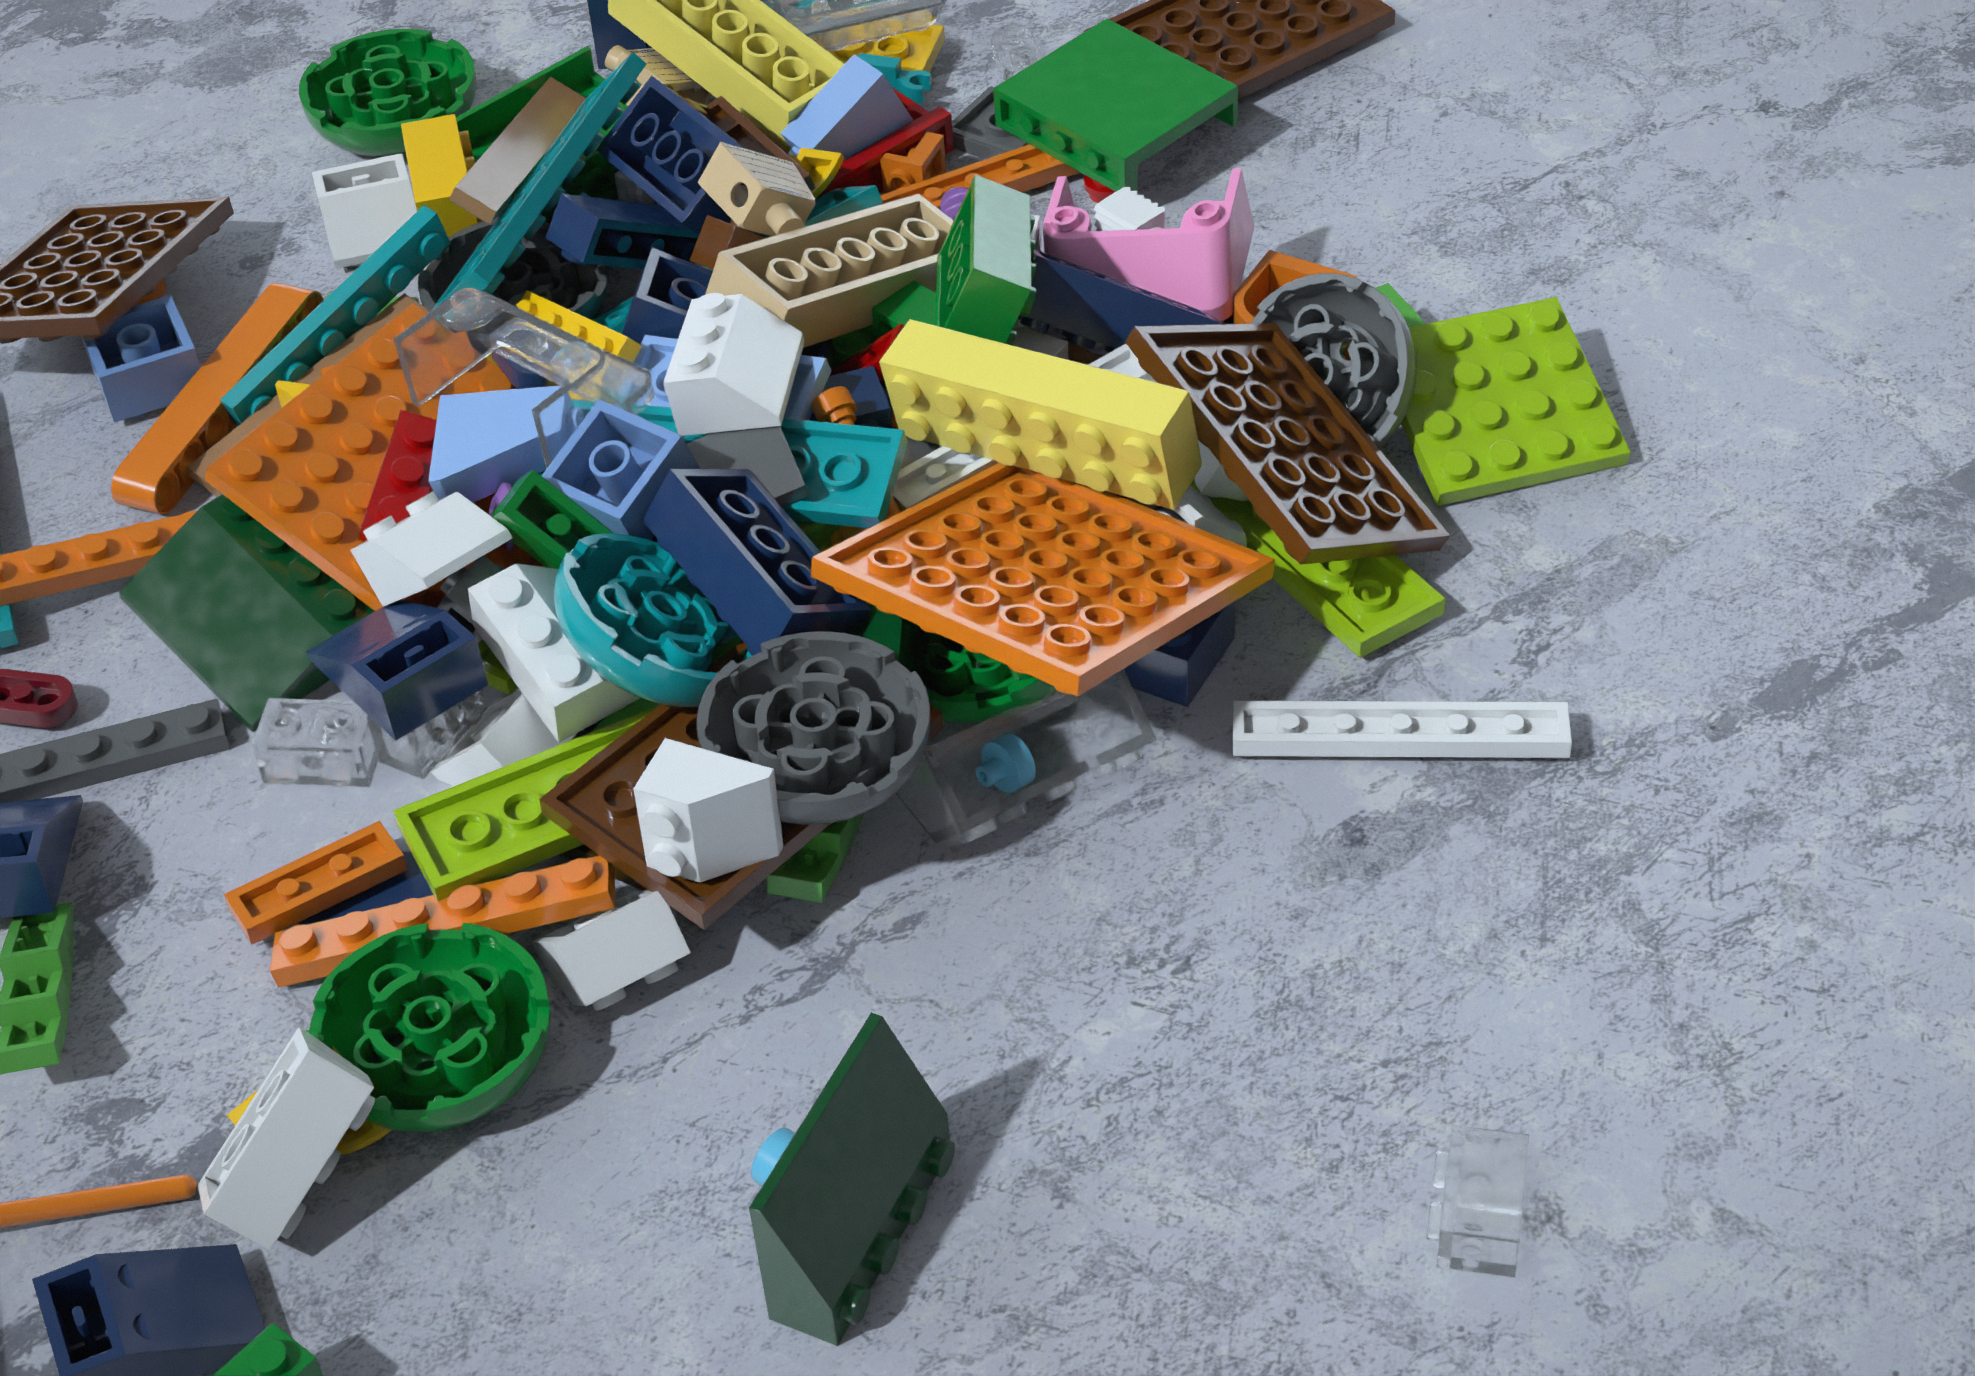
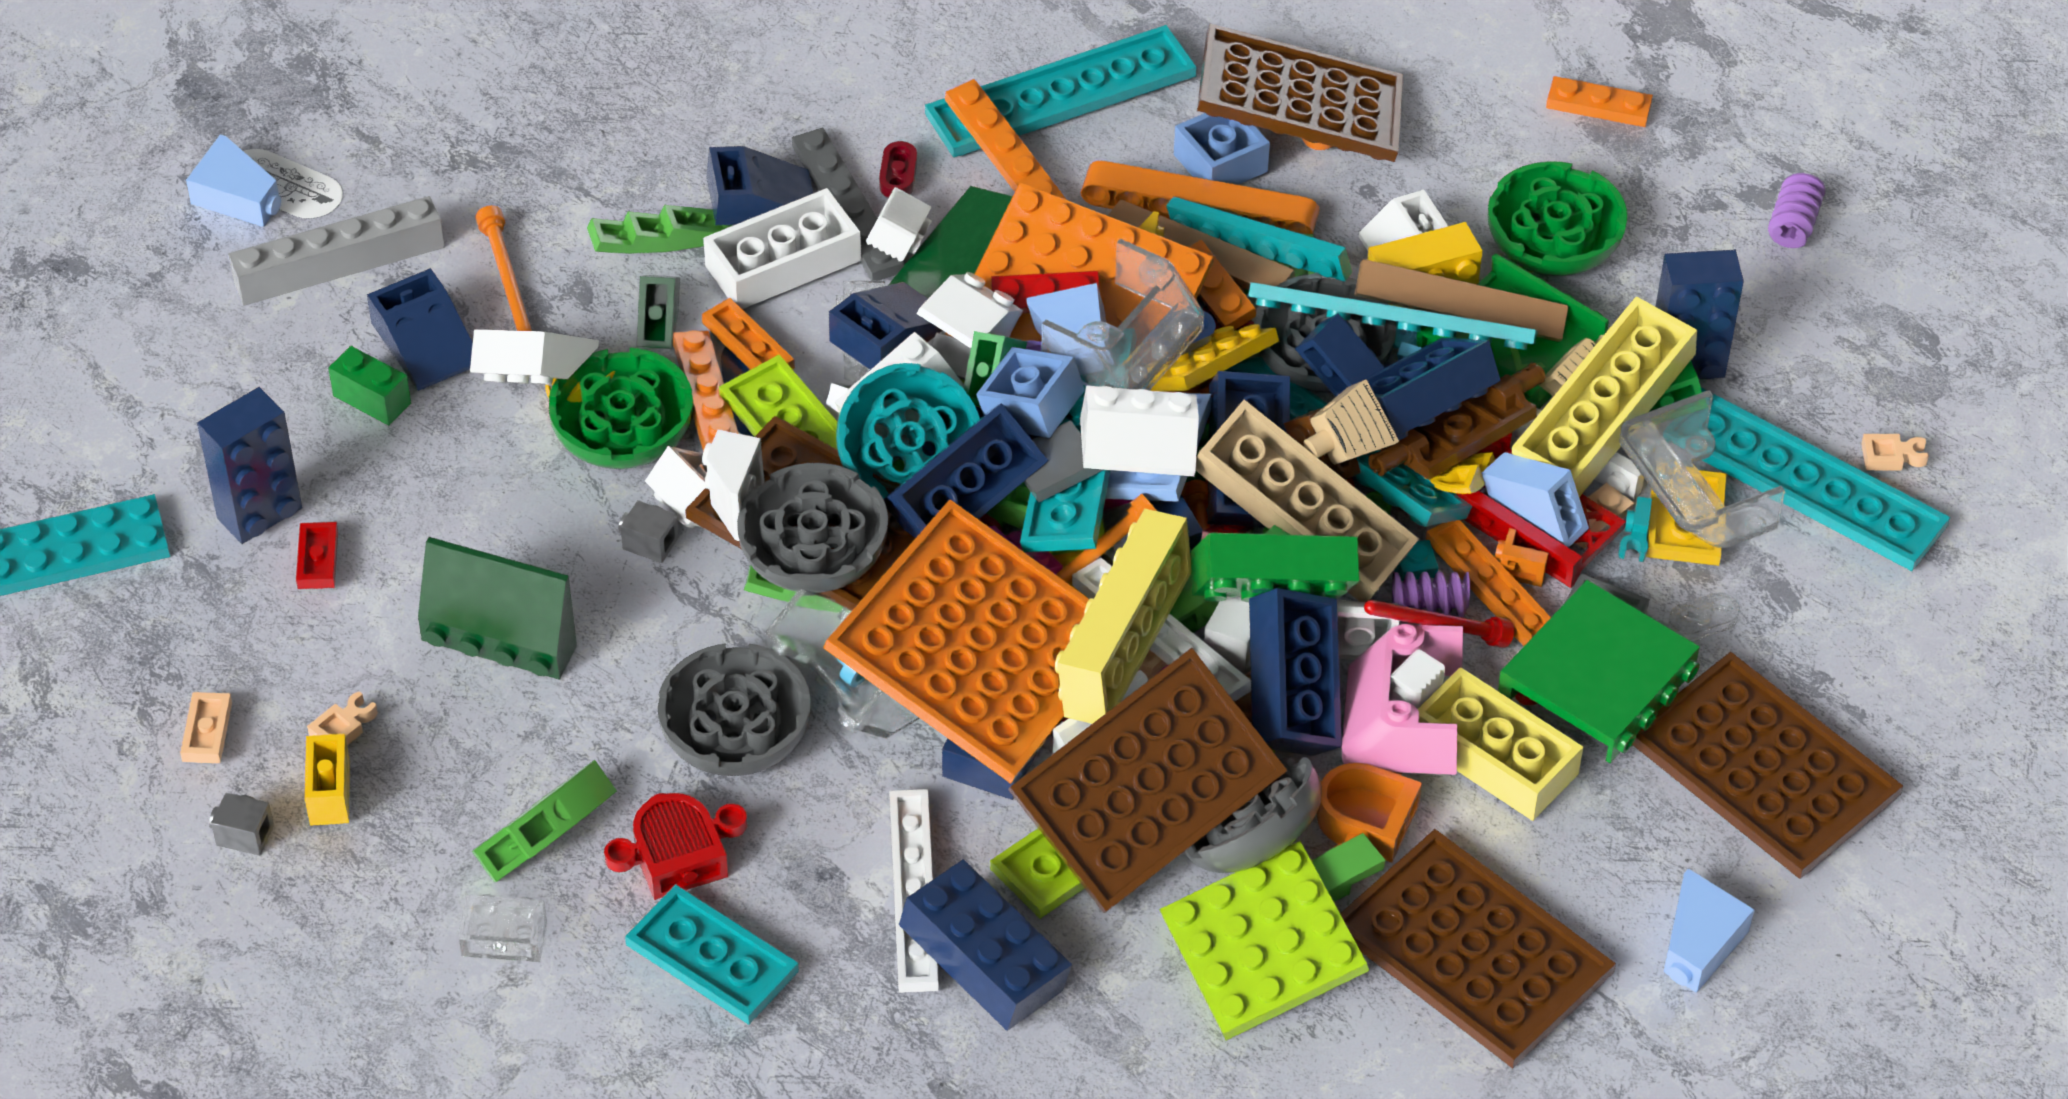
camera: 80 degrees right, 5 degrees up
(149, 824) = (782, 249): none -> white brick
(155, 682) = (900, 225): none -> white brick
(186, 67) = (1599, 101): none -> orange plate
(211, 989) = (657, 311): none -> slope
(685, 1010) = (648, 531): none -> flat silver brick
(1038, 202) = (1494, 631): none -> red piece
(1109, 879) = (735, 689): none -> dark grey brick
(1203, 169) = (1504, 744): none -> light yellow brick
(1263, 1127) = (544, 821): none -> bright green slope
(1313, 984) = (677, 842): none -> red piece
(1474, 84) = (1704, 930): none -> light blue slope
(1500, 238) = (1475, 947): none -> reddish brown plate
(1514, 954) = (712, 954): none -> teal plate
(1518, 640) = (985, 944): none -> dark blue brick

